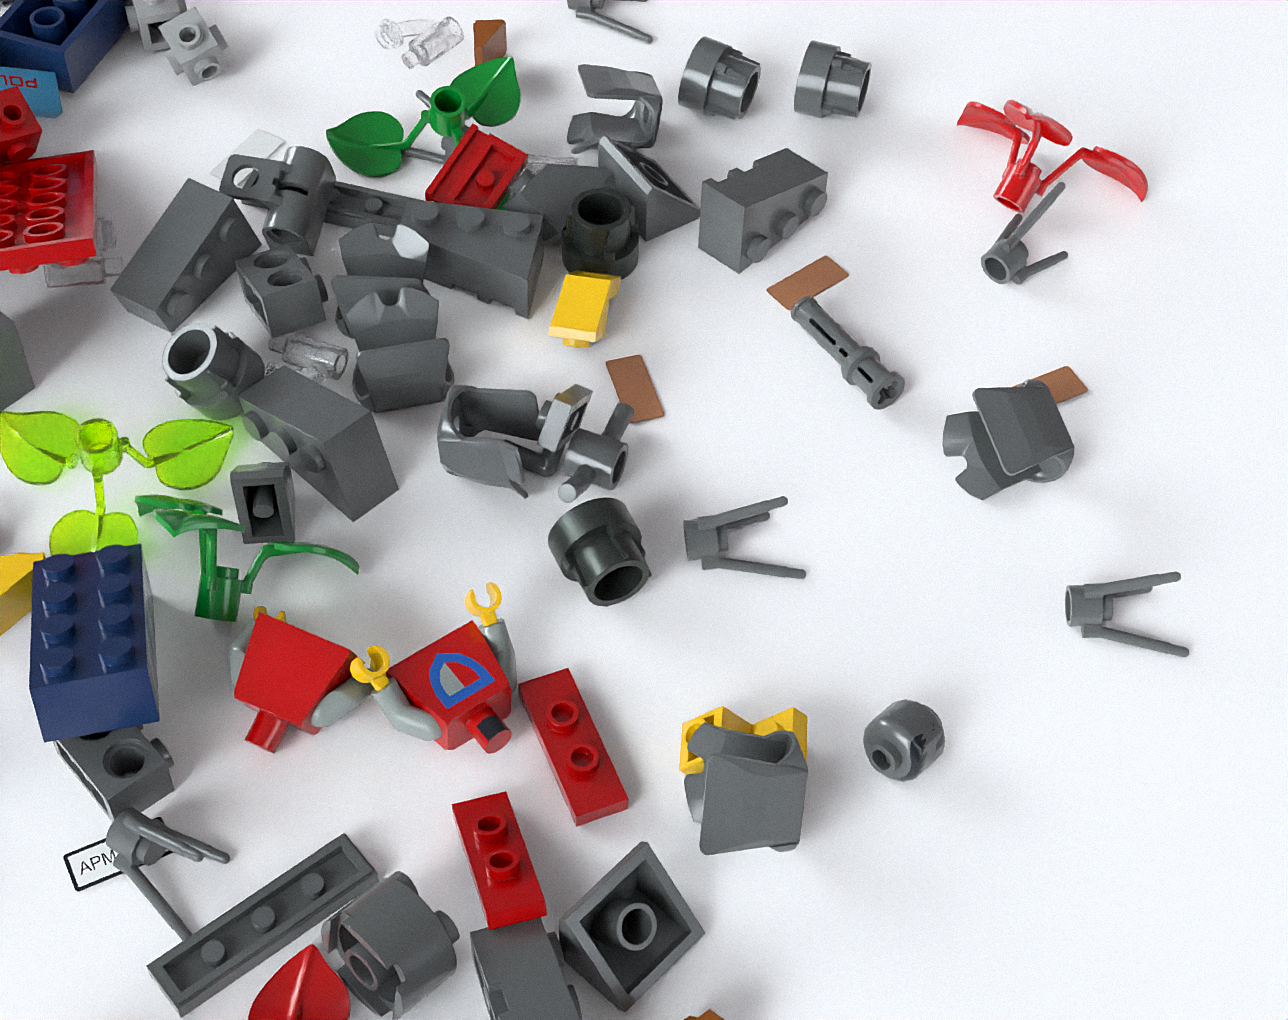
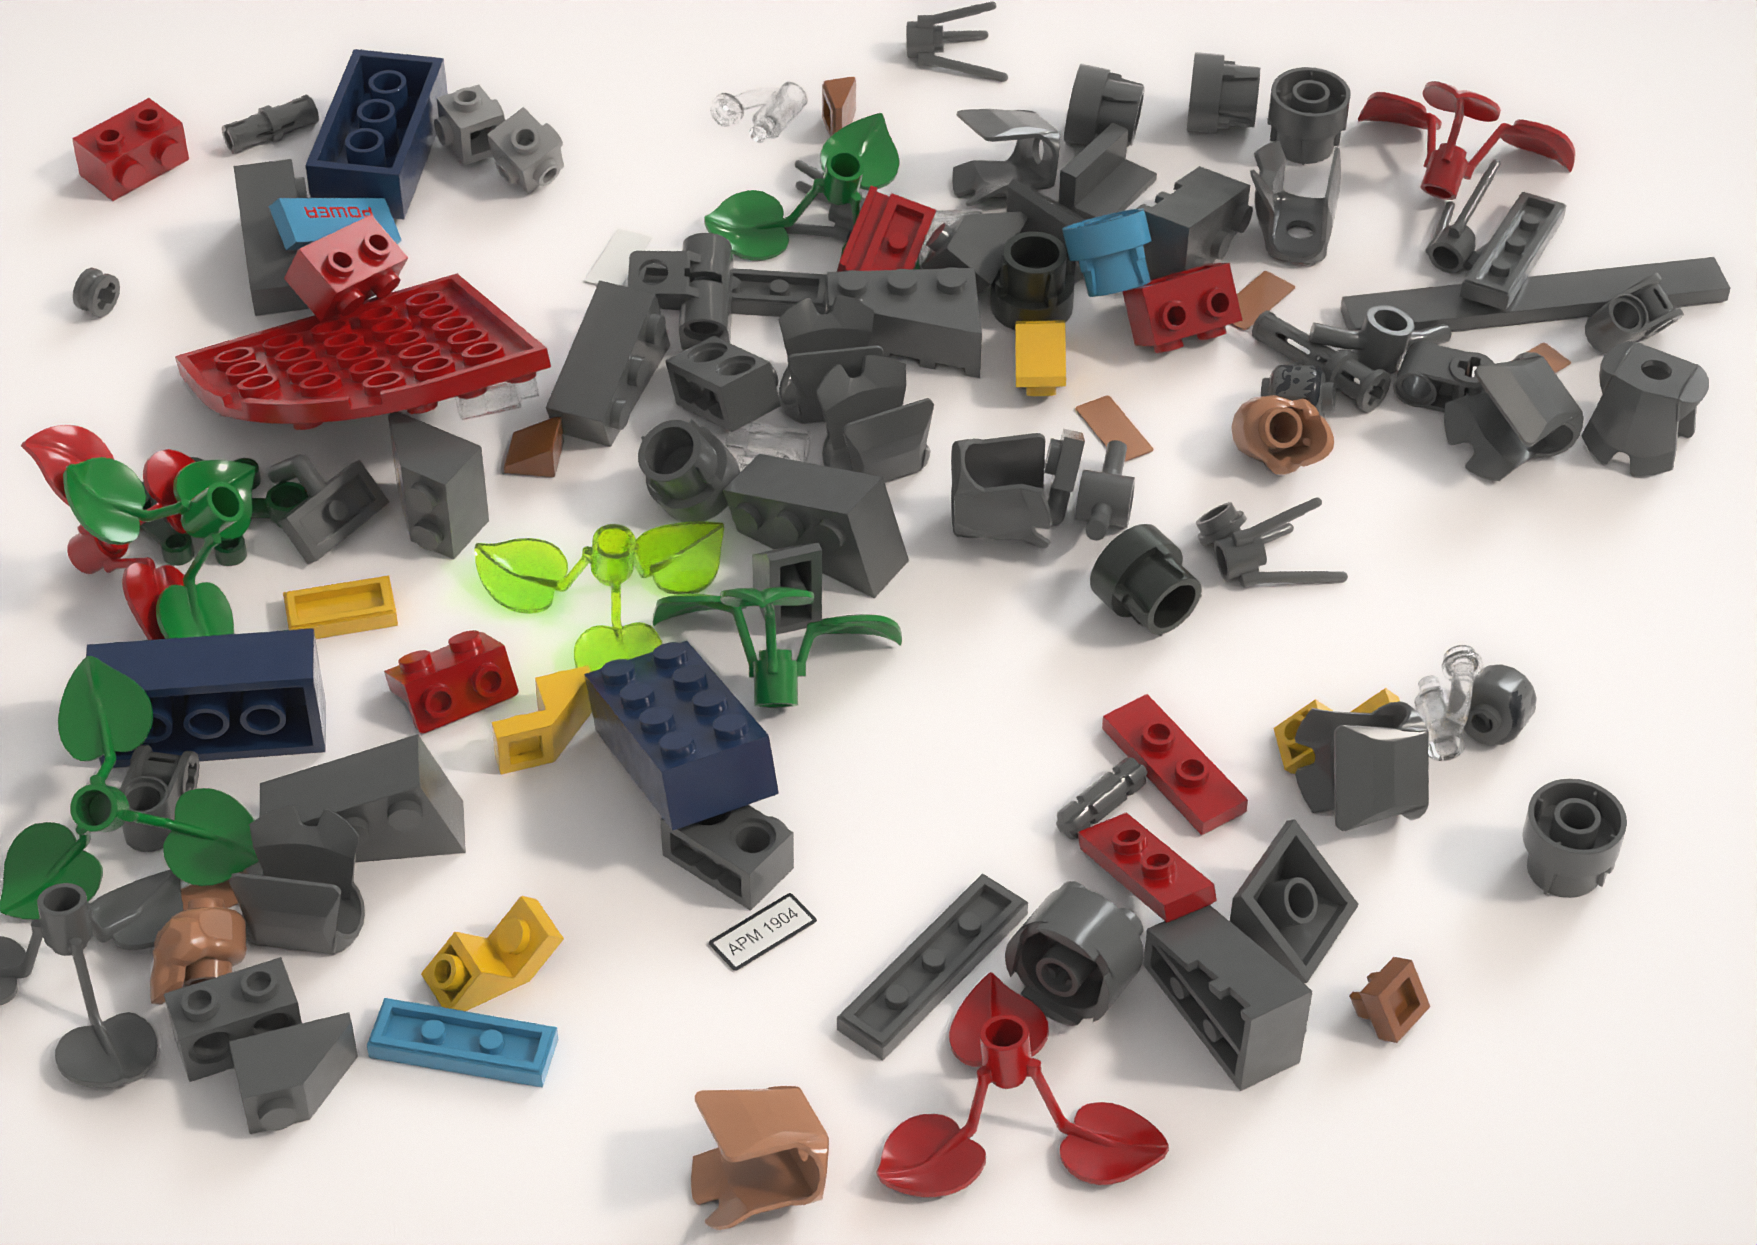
camera: 10 degrees left, 5 degrees down
(100, 326) = (536, 449): none -> dark orange slope
(144, 841) = (791, 908): dark grey plant -> none
(291, 679) = (888, 741): red torso -> none
(452, 686) = (1043, 723): torso -> none
(489, 770) = (1101, 797): none -> dark grey axle
(669, 219) = (1110, 251): none -> dark azure piece
(696, 502) = (1219, 523): none -> dark grey plate
(702, 145) = (1102, 178): none -> dark grey panel
(729, 280) = (1183, 305): none -> red brick
(781, 421) = (1282, 433): none -> nougat head
(810, 386) = (1301, 382): none -> dark grey head
(851, 734) = (1446, 709): none -> clear plant
(853, 198) = (1281, 210): none -> dark grey piece
(905, 112) = (1308, 113): none -> dark grey piece
(908, 340) = (1382, 337): none -> dark grey piece
(941, 878) = (1572, 836): none -> dark grey piece
(947, 383) = (1437, 375): none -> dark grey piece
(1060, 272) = (1513, 251): none -> dark grey tile
(1071, 321) = (1546, 296): none -> dark grey tile
(1093, 603) = (1640, 556): dark grey plant -> none
(1136, 448) = (1644, 407): none -> dark grey piece
(1161, 351) = (1632, 315): none -> dark grey piece

